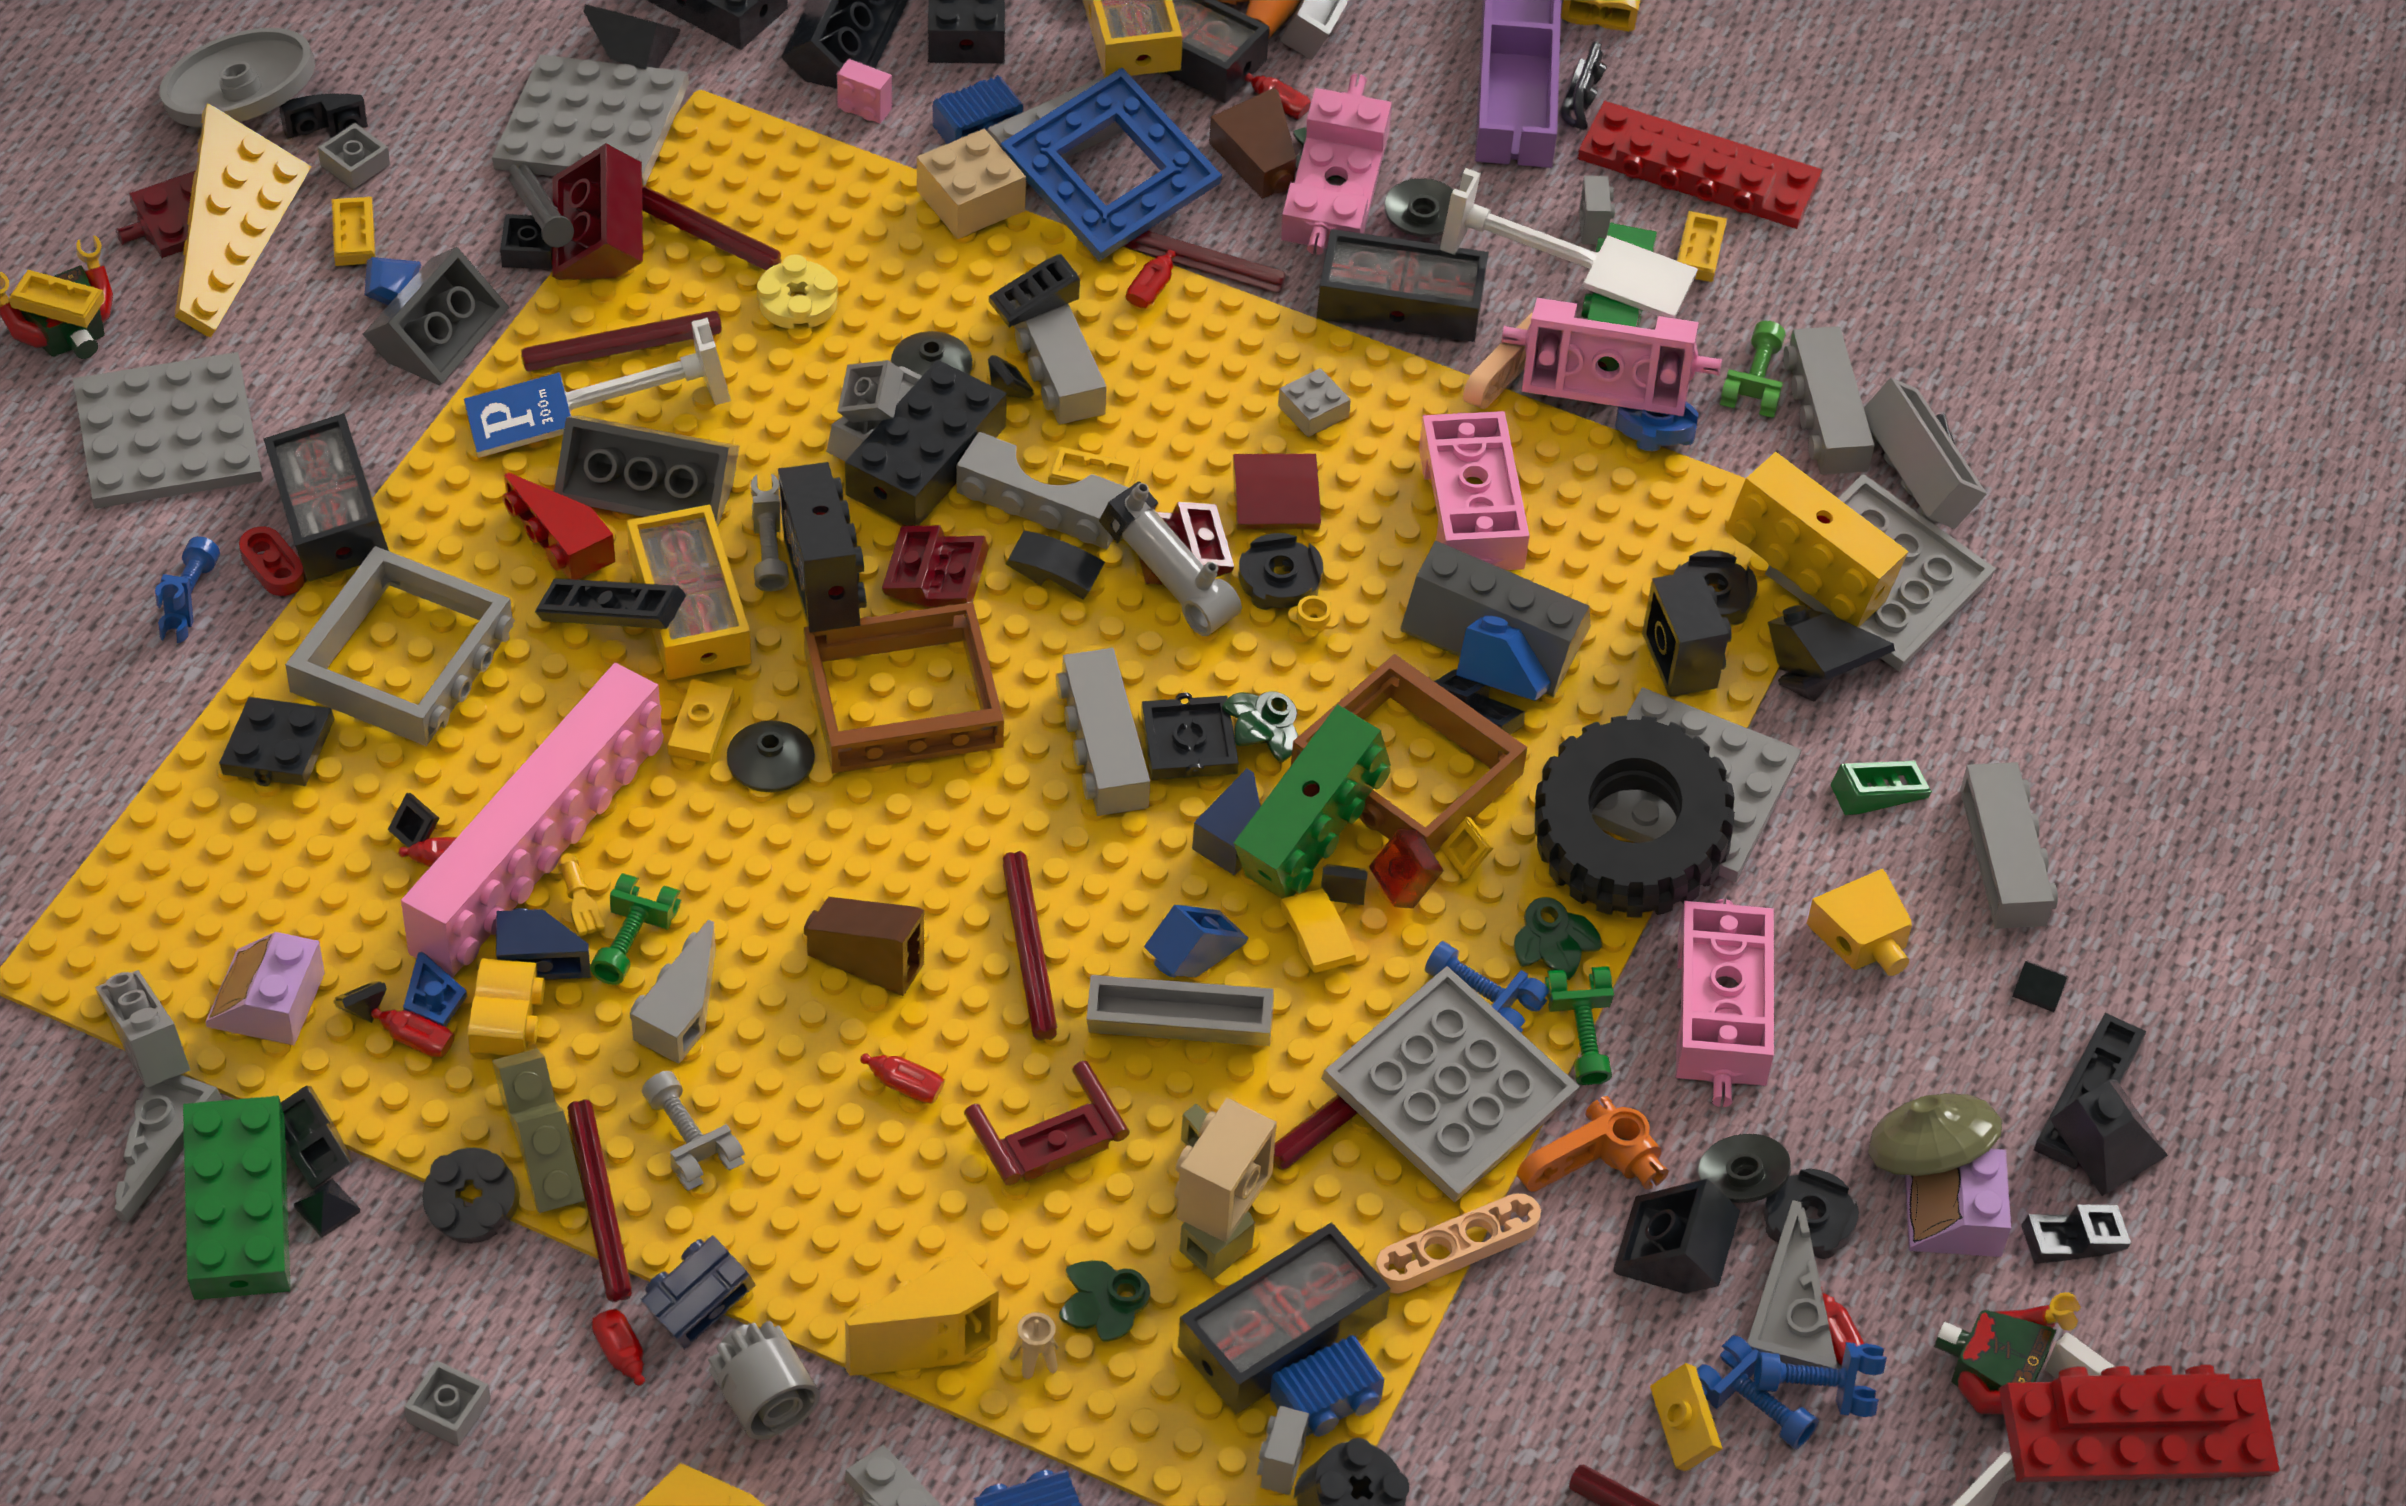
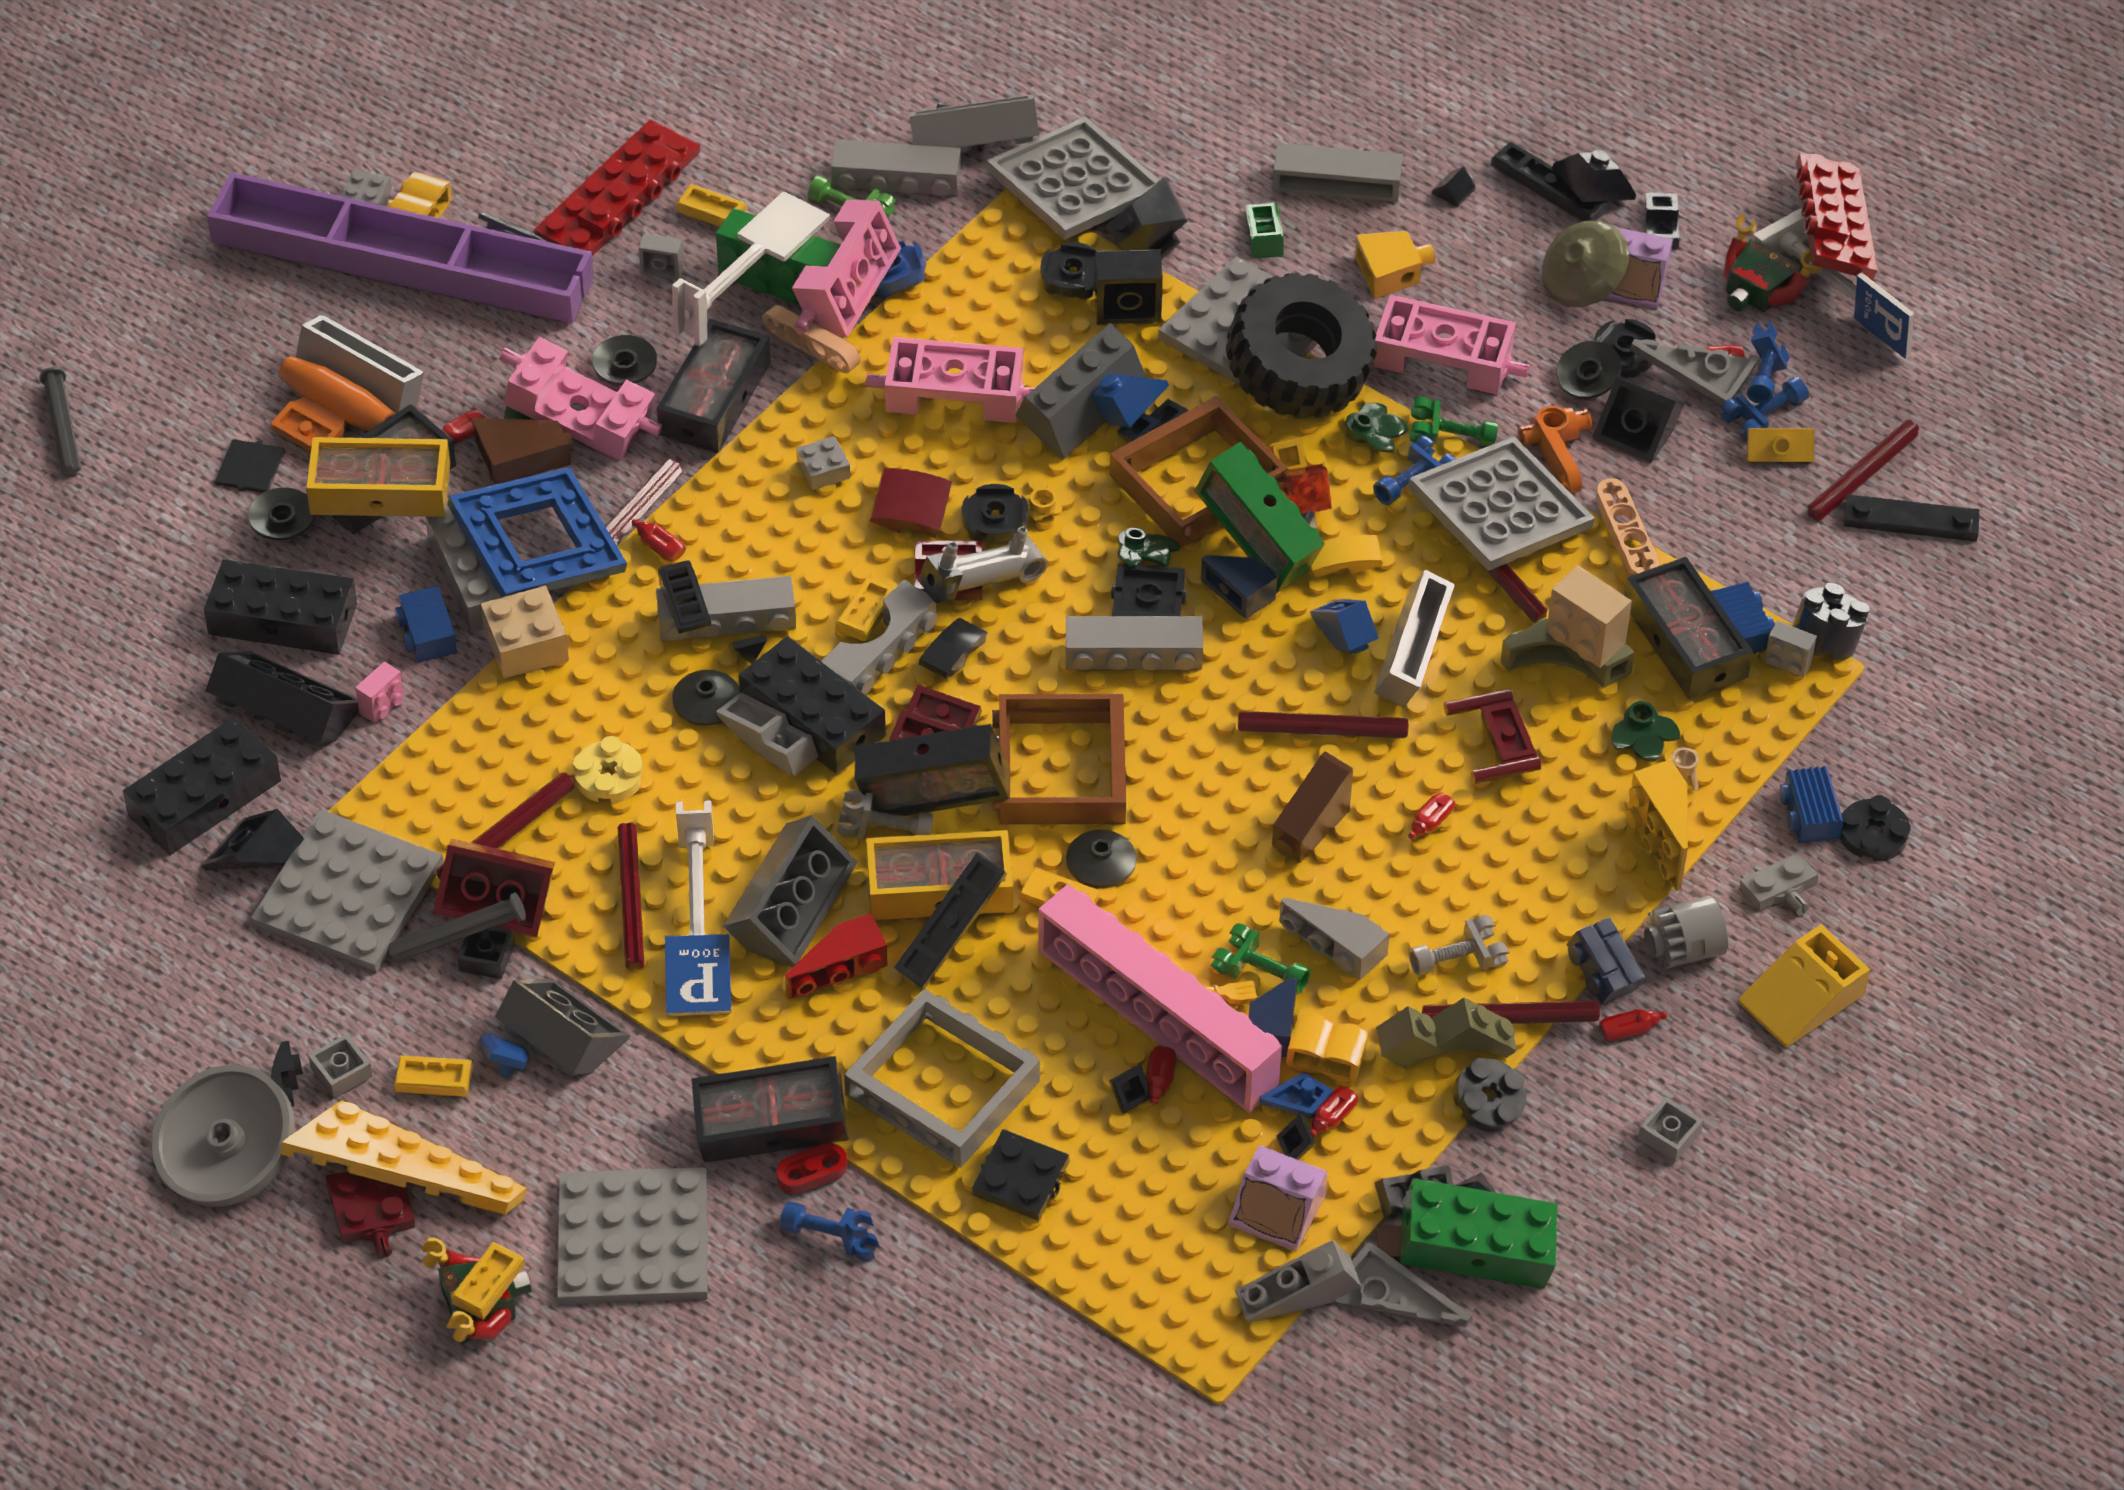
camera: 75 degrees left, 0 degrees up
(870, 391) = (776, 714): light grey piece -> none
(1816, 540) = (1072, 187): yellow brick -> none

